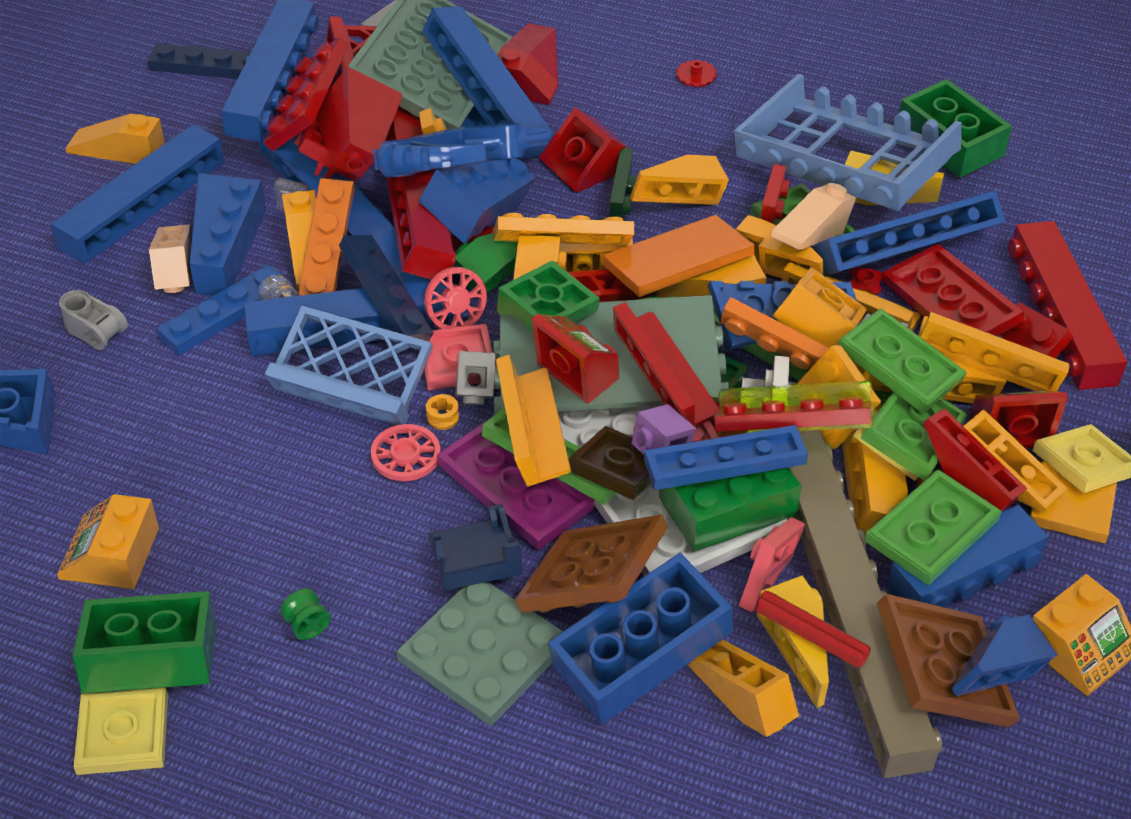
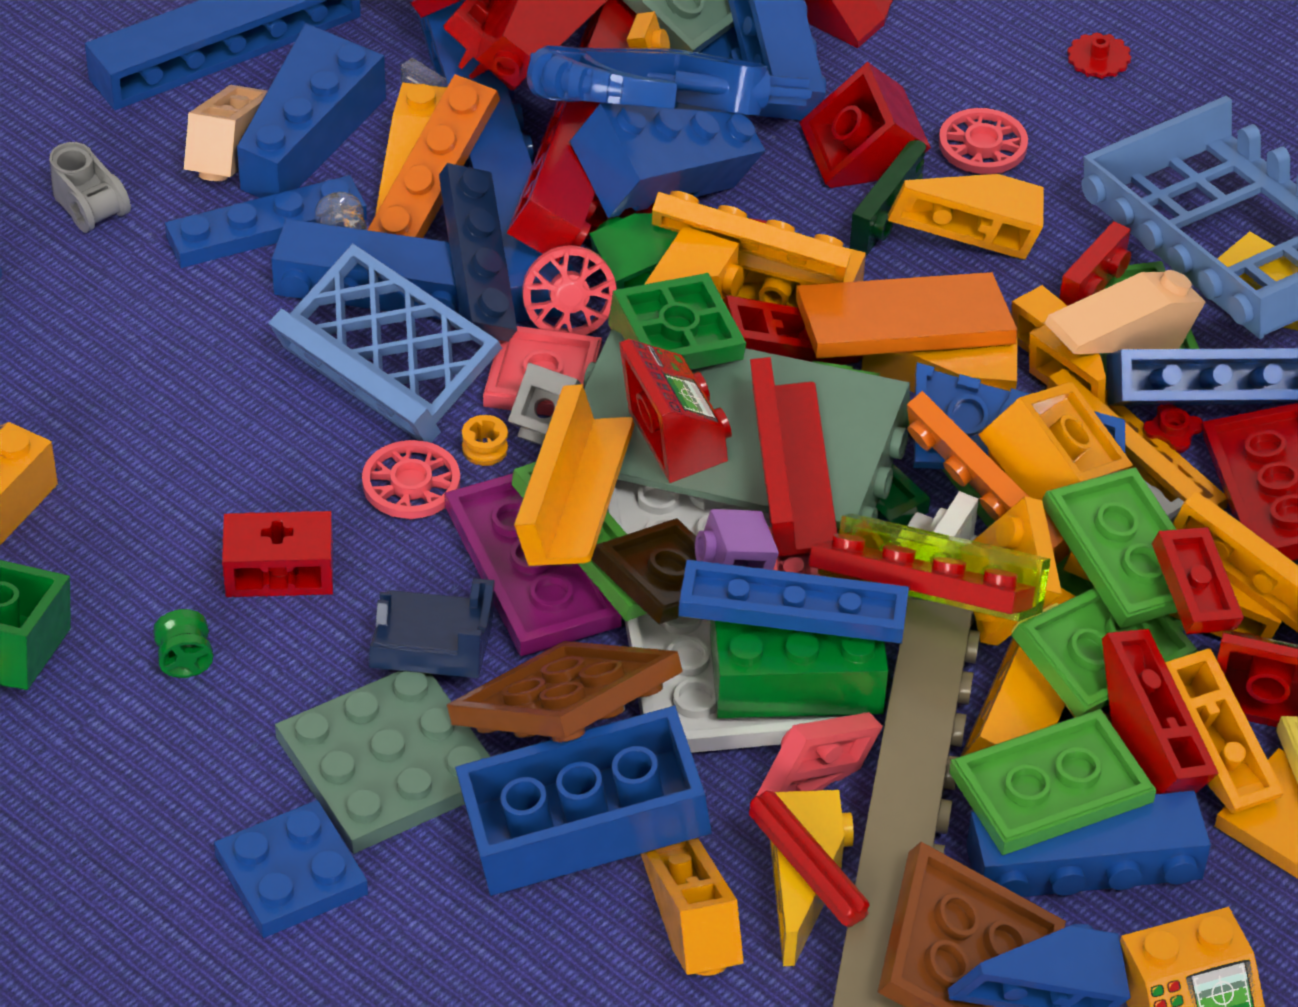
camera: 20 degrees right, 0 degrees up
(342, 530) = (278, 554): none -> red brick
(455, 752) = (290, 868): none -> blue plate
(656, 140) = (983, 141): none -> coral wheel
(960, 368) = (1197, 580): none -> red plate

